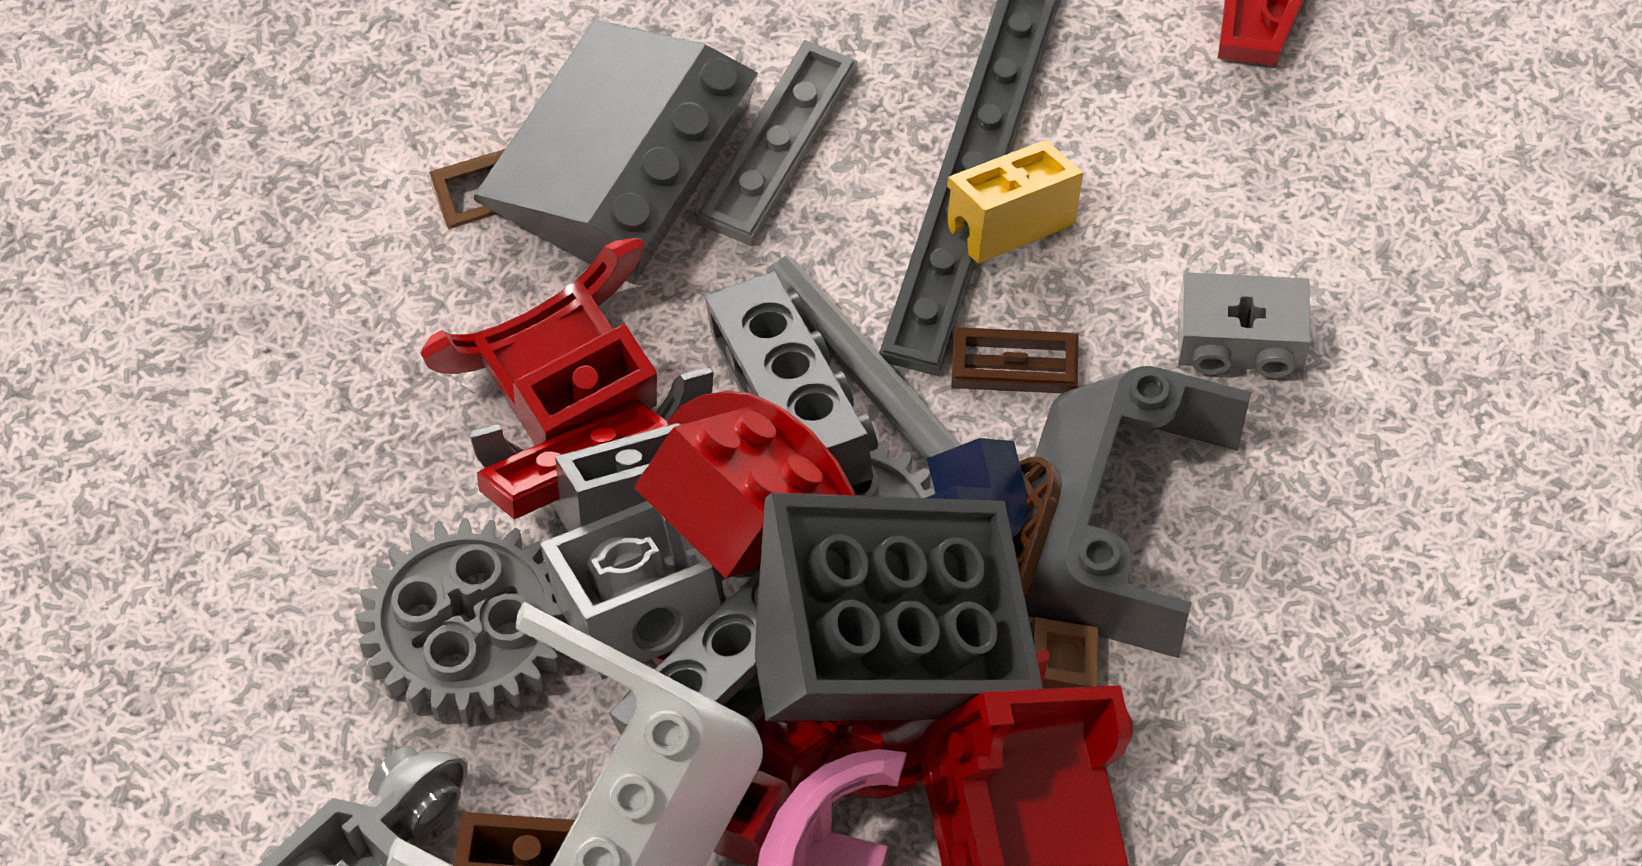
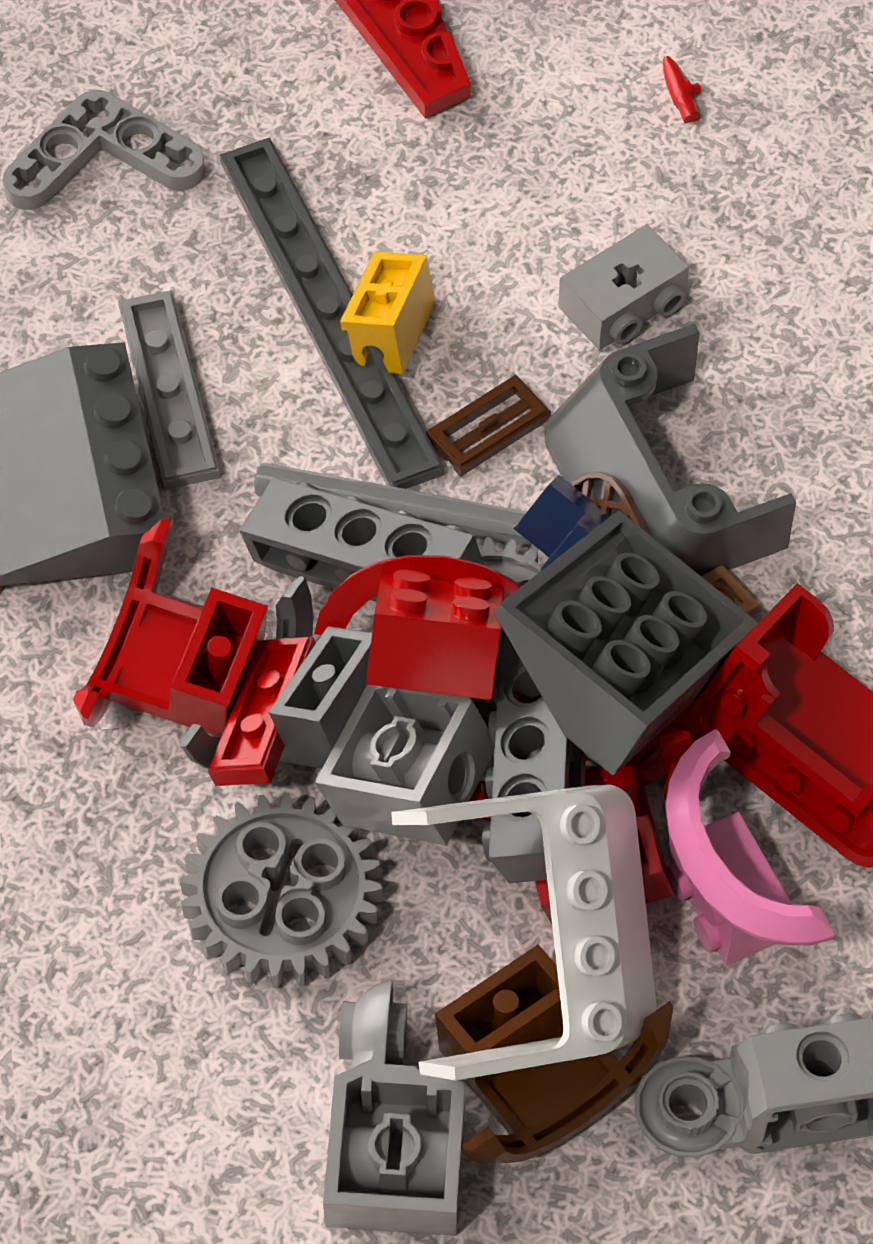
camera: 40 degrees left, 0 degrees up
(1475, 187) = (681, 90): none -> red helmet

